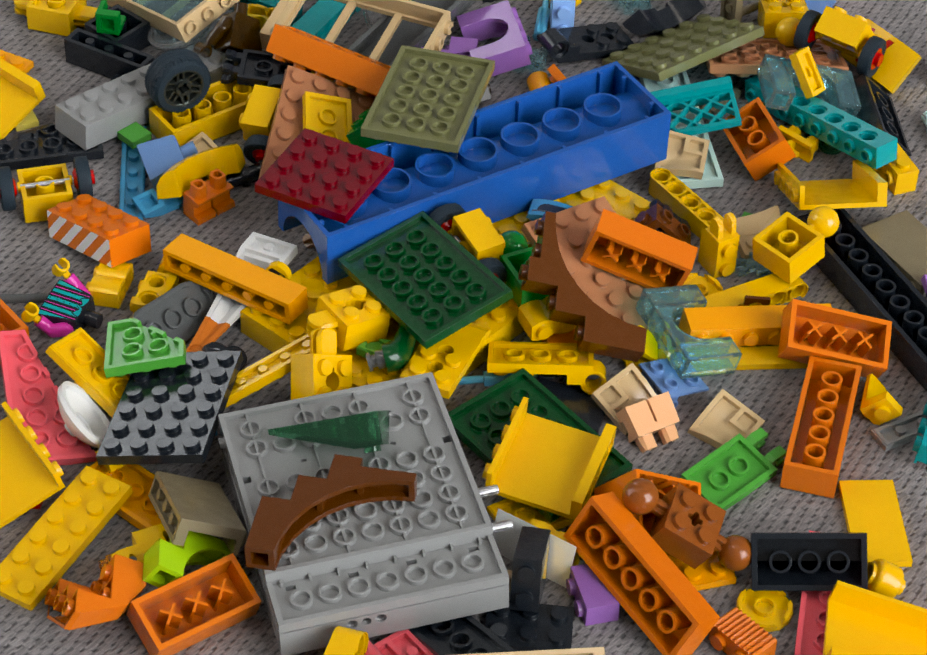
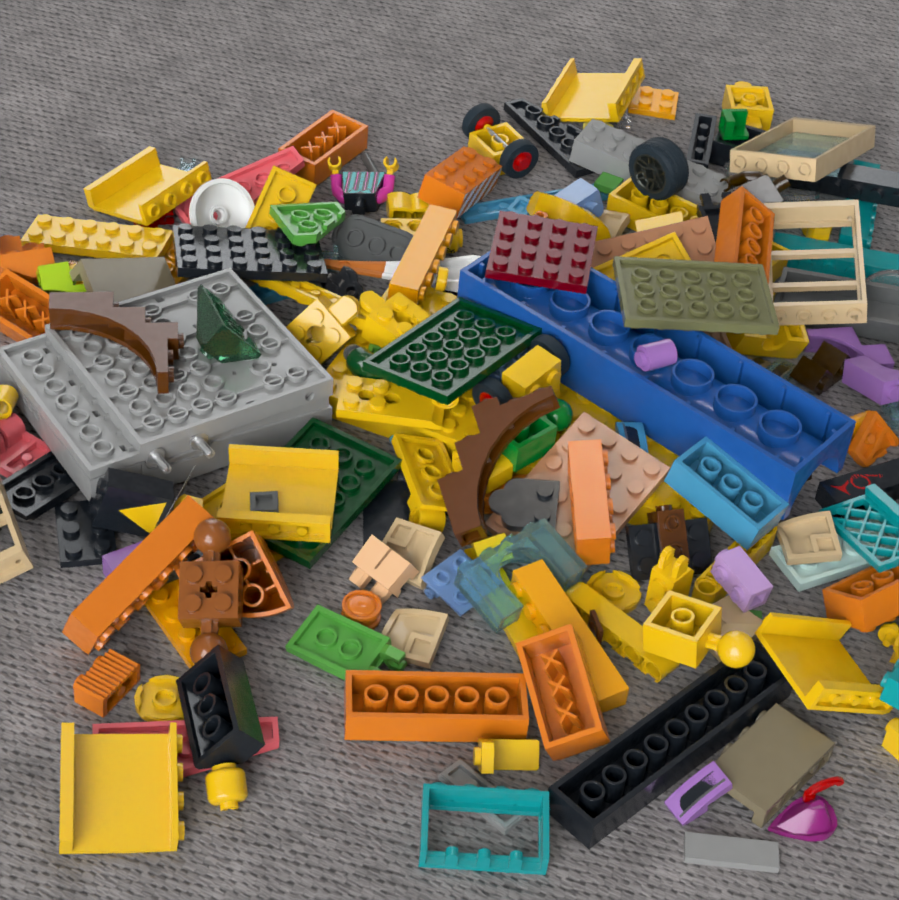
camera: 70 degrees right, 0 degrees up
(509, 142) = (656, 355): none -> medium lavender brick
(560, 474) = (264, 501): none -> dark grey tile
(612, 295) = (526, 502): none -> black plate
(641, 173) = (726, 492): none -> dark azure brick
(688, 449) = (362, 608): none -> orange wheel
(734, 198) = (741, 578): none -> lavender brick
(875, 509) = (318, 778): yellow tile -> none

